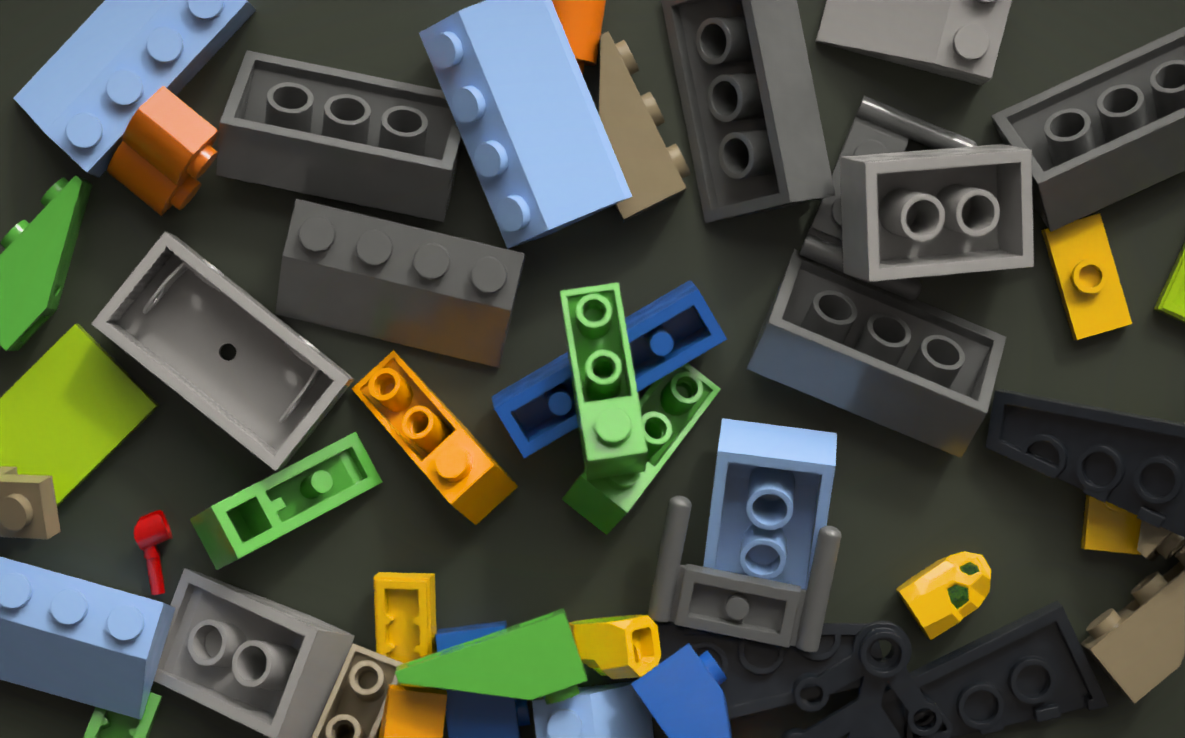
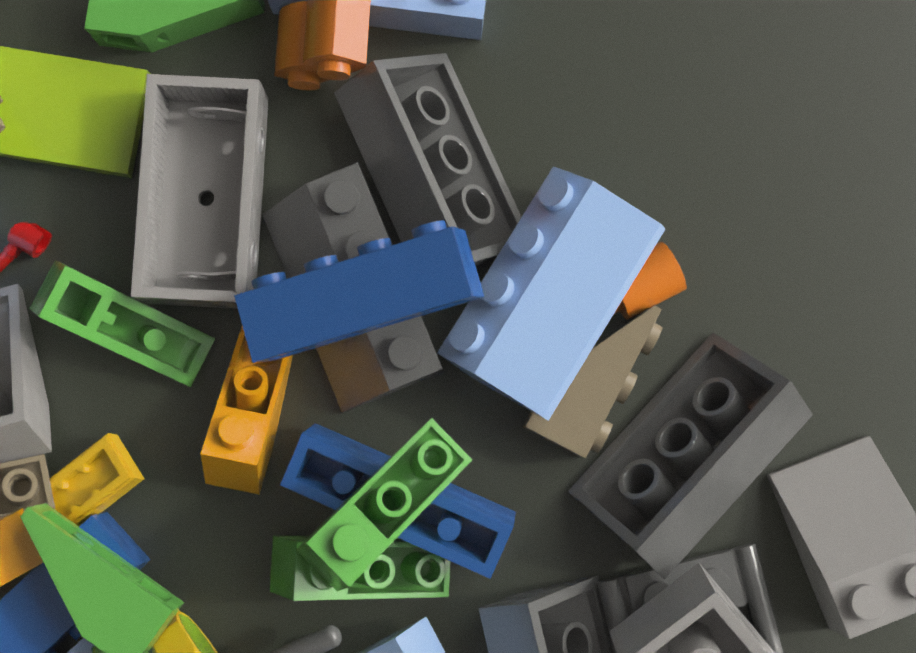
camera: 50 degrees right, 5 degrees down
(414, 276) = (360, 293): none -> blue brick

